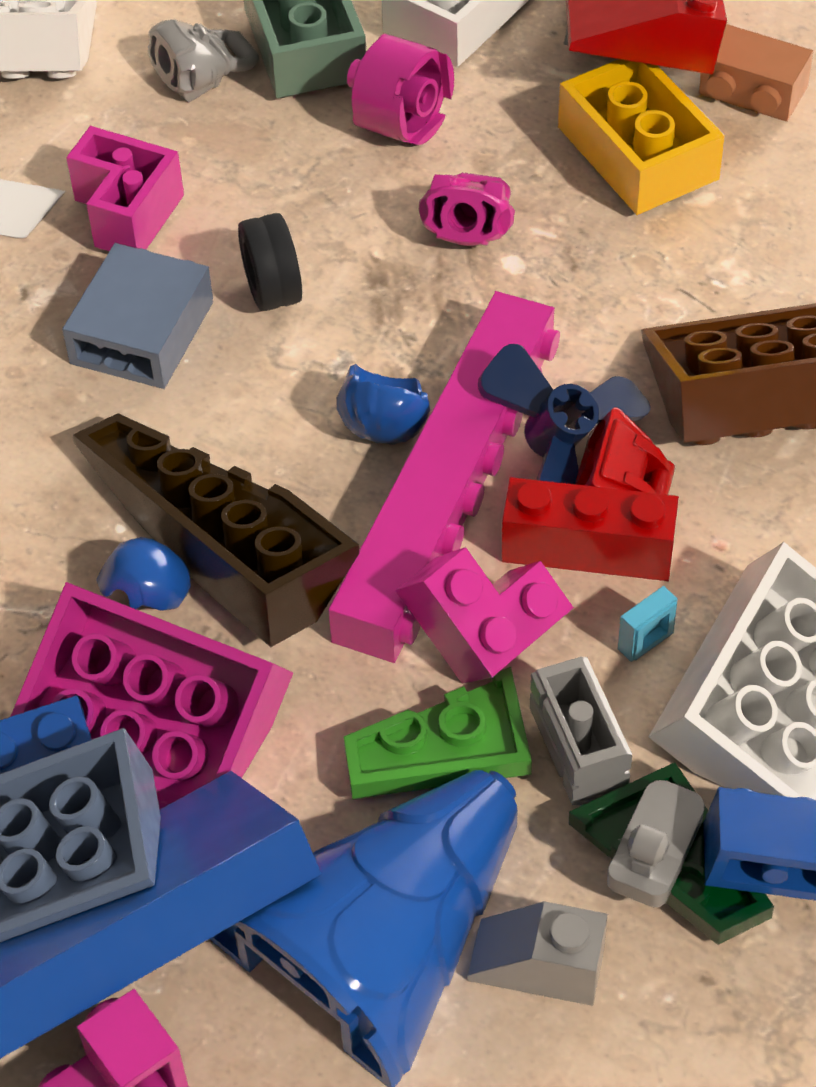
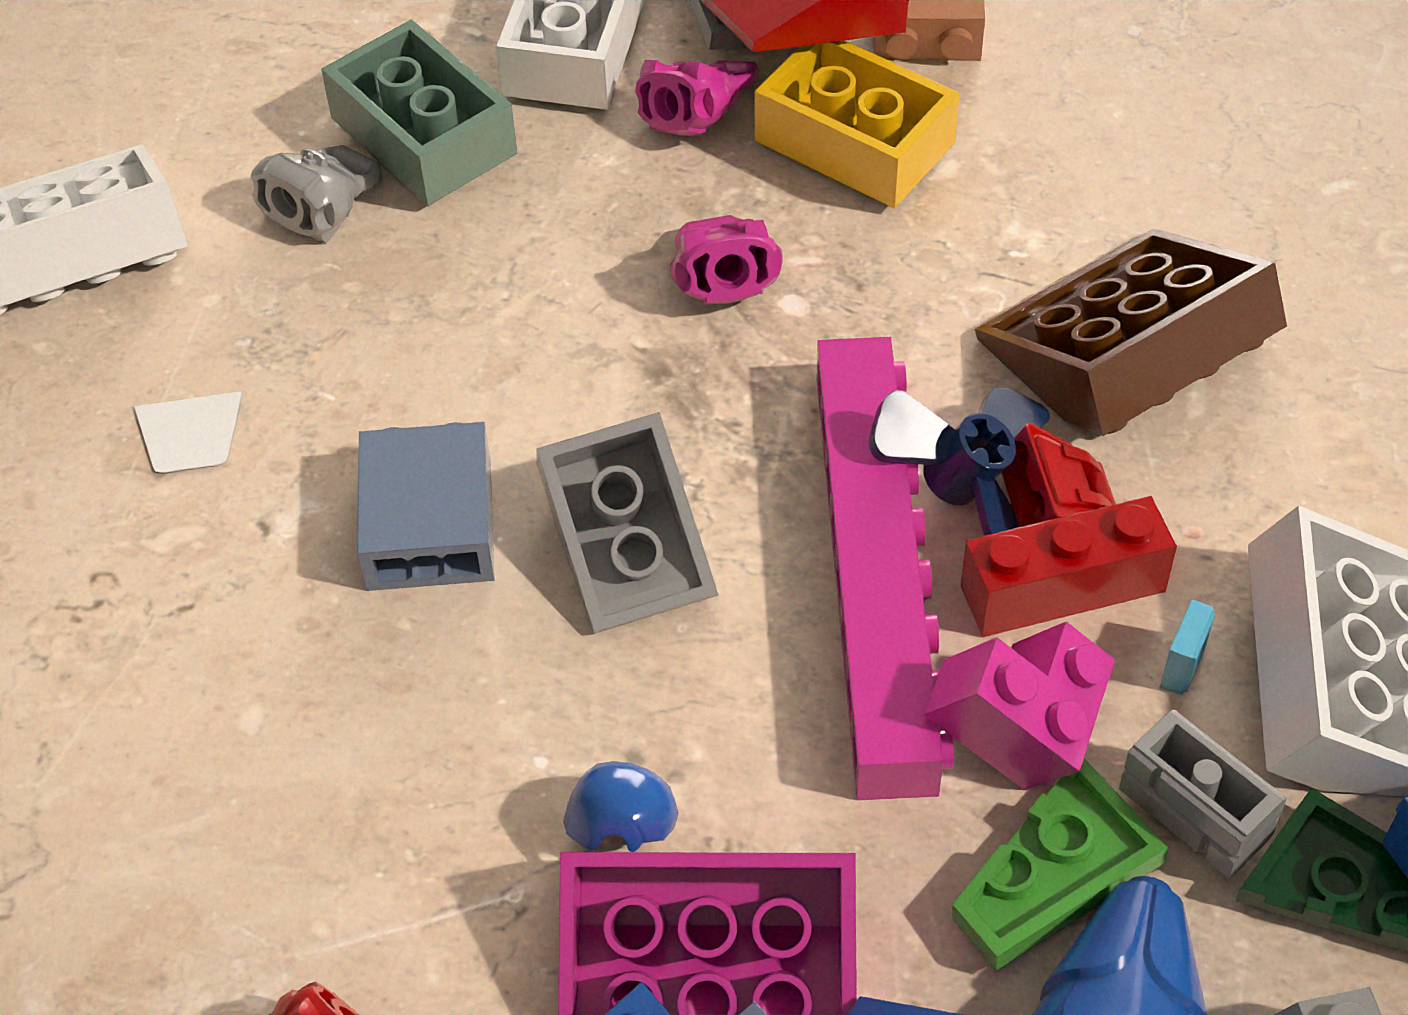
camera: 25 degrees left, 0 degrees up
(125, 185) = (330, 357): dark pink brick -> none
(242, 543) = (713, 725): dark brown wedge -> none
(270, 261) = (547, 390): black tyre -> none
(274, 375) = (625, 522): none -> light grey slope
(382, 406) = (766, 511): blue hair -> none
(400, 89) = (575, 152): dark pink brick -> none
(521, 73) = (690, 94): none -> dark pink piece
(656, 843) = (1355, 886): light grey piece -> none

